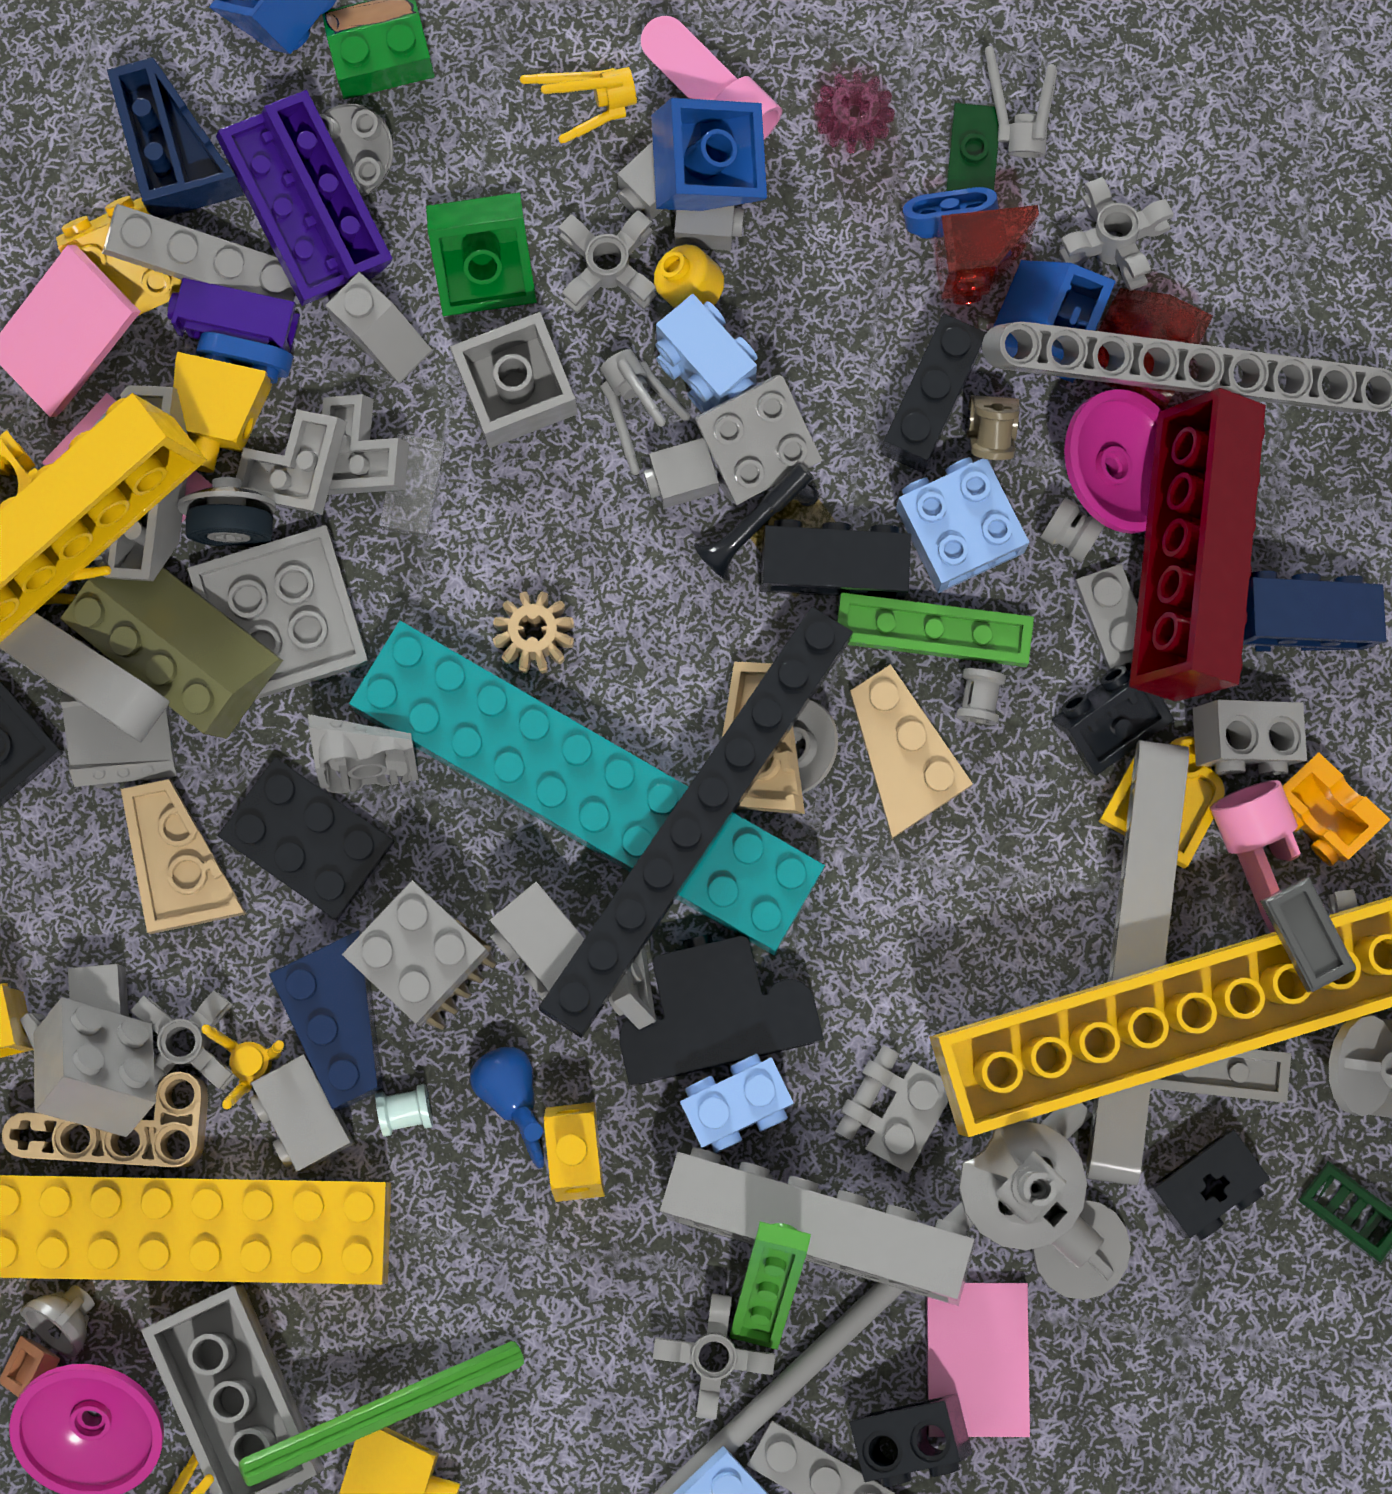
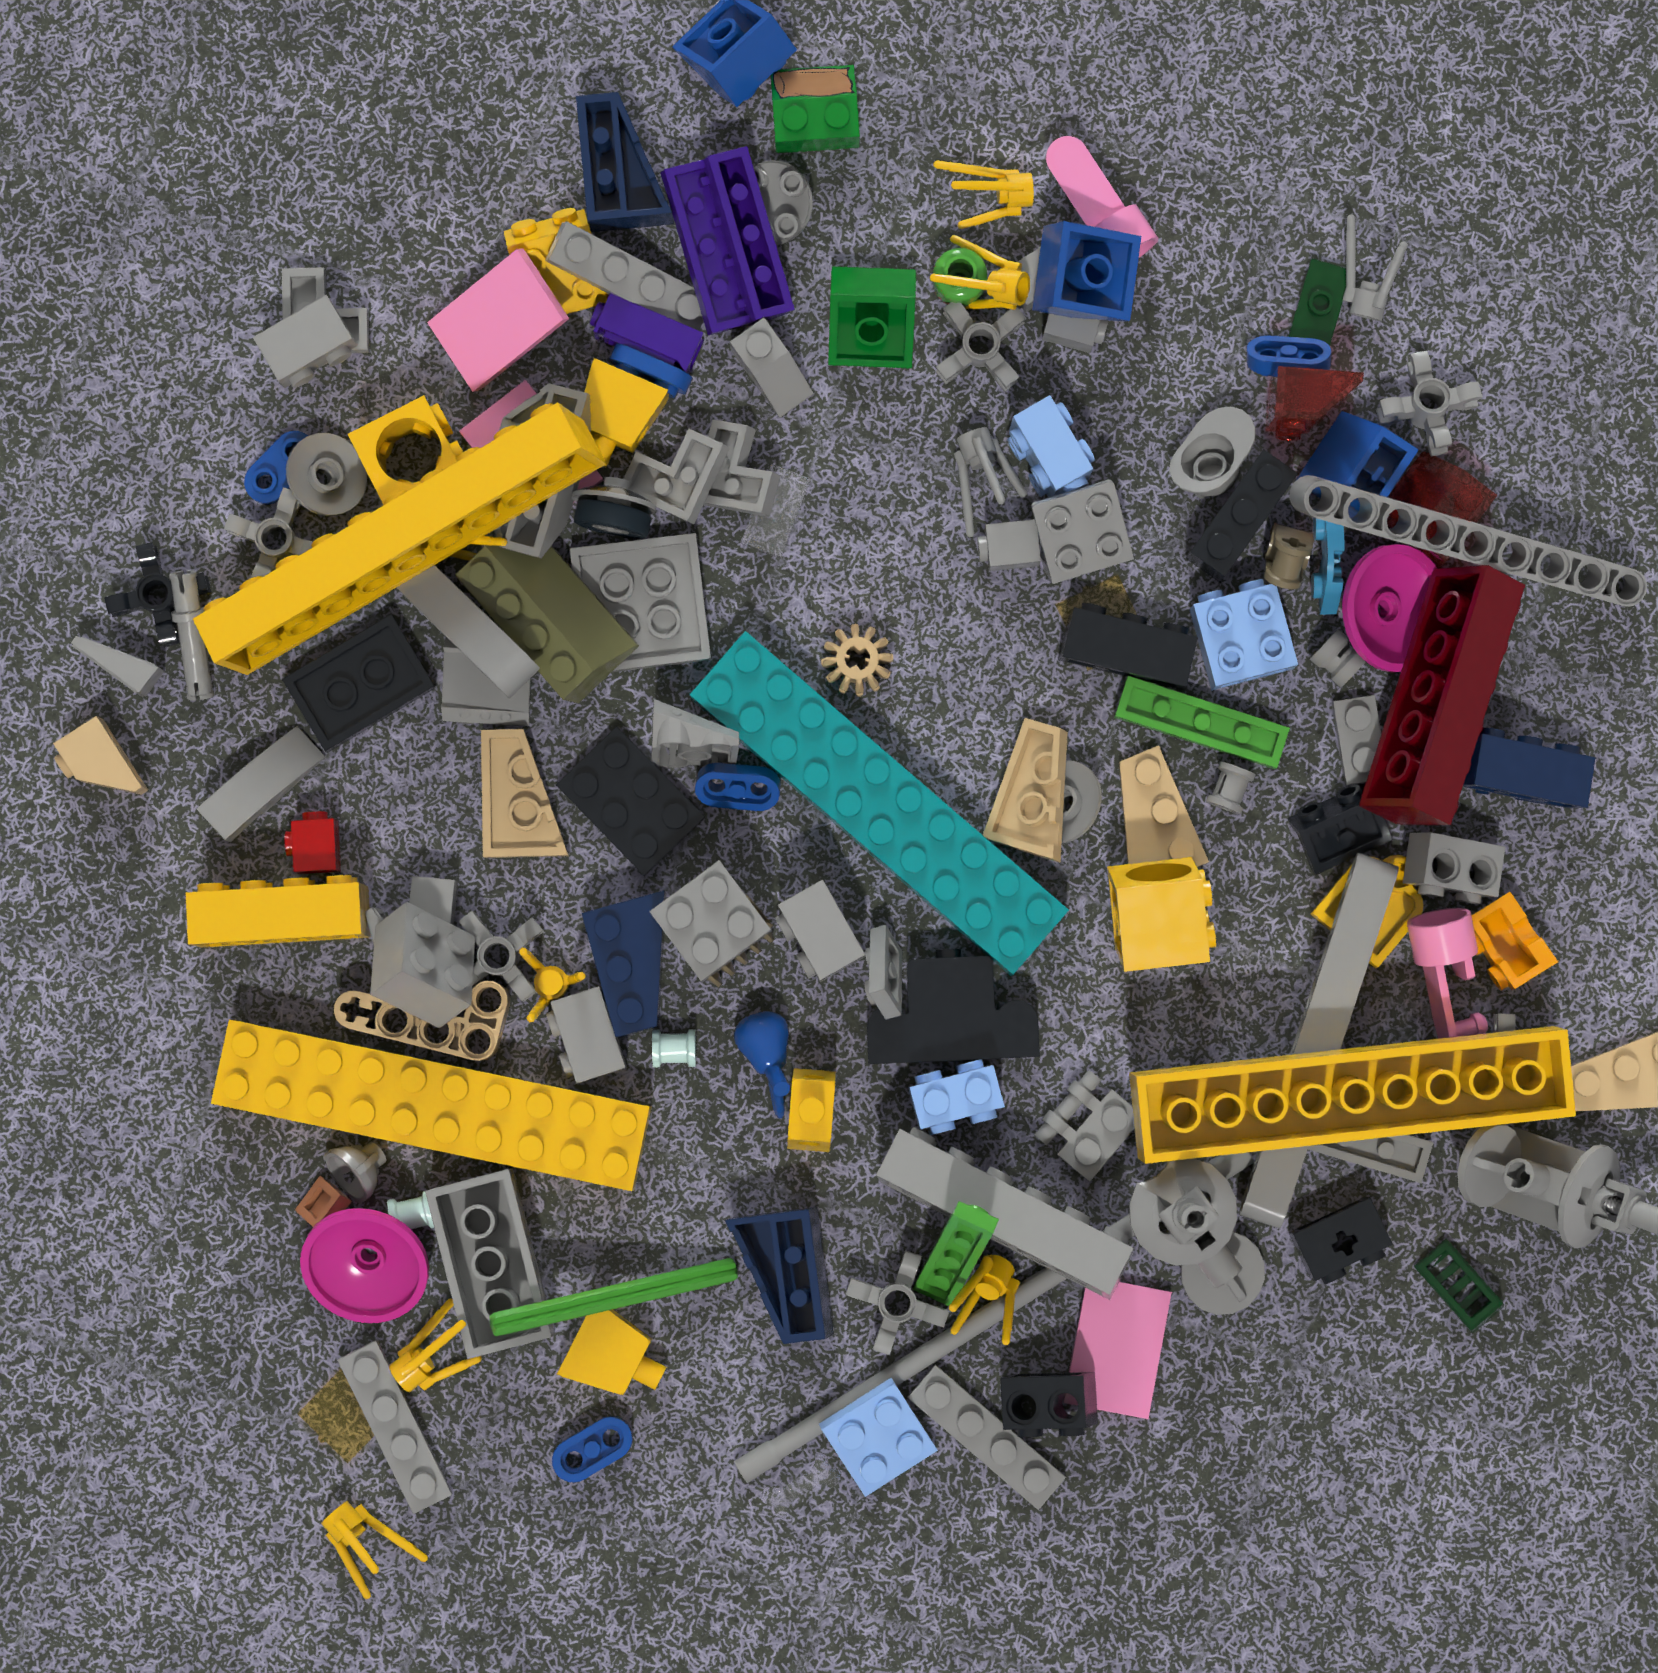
camera: 10 degrees right, 5 degrees up
(130, 1359) = (411, 1212): none -> light aqua bush
(425, 800) = (738, 787): none -> blue plate
(514, 380) = (881, 436): light grey brick -> none
(566, 177) = (959, 262): none -> bright green head
(581, 1342) = (789, 1270): none -> dark blue wedge
(623, 187) = (1007, 285): none -> yellow plant
(687, 272) = (1048, 372): yellow head -> none
(695, 823) = (968, 852): black plate -> none
(792, 486) = (1107, 576): black piece -> none
(815, 1312) = (989, 1281): none -> yellow plant
(836, 114) = (1208, 255): clear pink gear -> none
(889, 329) = (1213, 452): none -> light grey piece
(930, 850) = (1160, 914): none -> yellow brick
(1045, 446) = (1328, 582): none -> dark azure plate
(1308, 935) = (1463, 1049): dark grey tile -> none

